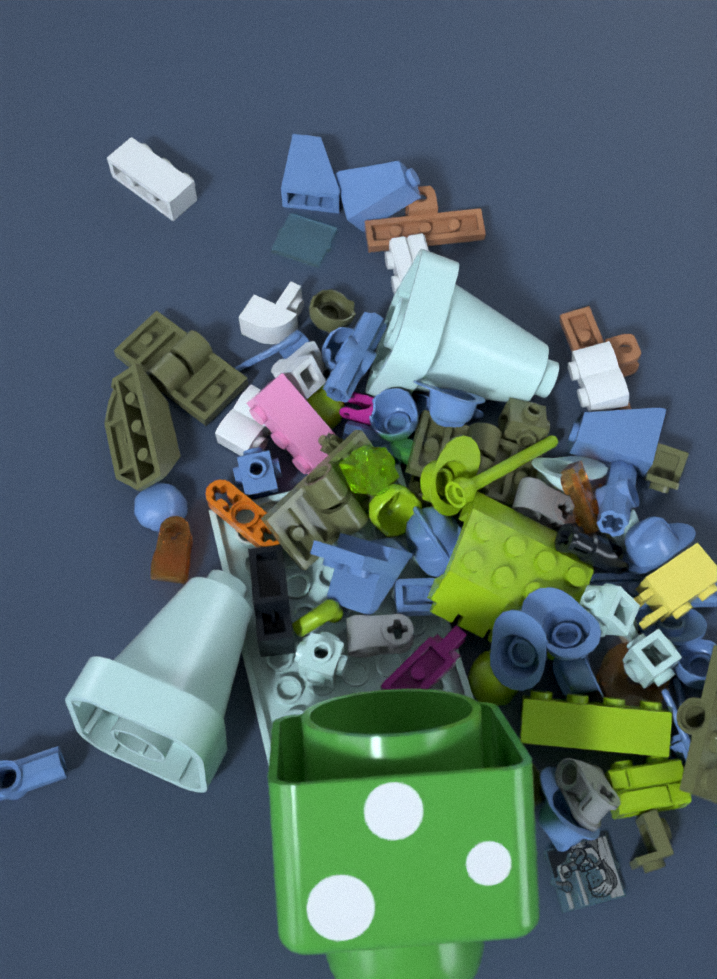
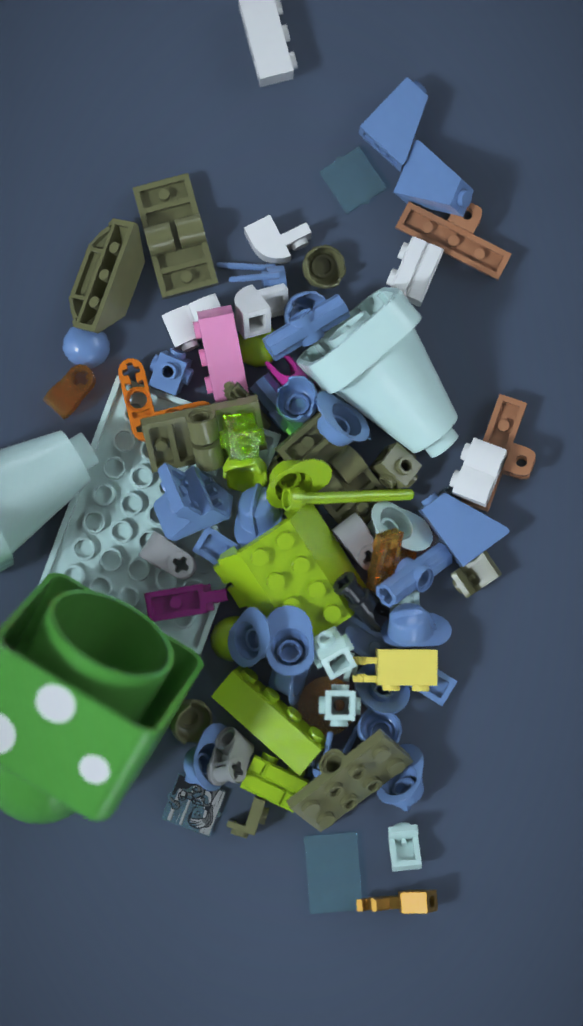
camera: 30 degrees right, 20 degrees up
(271, 601) = (112, 478): black slope -> none
(324, 670) = (124, 556): light aqua brick -> none
(325, 612) = (139, 514): lime arm -> none

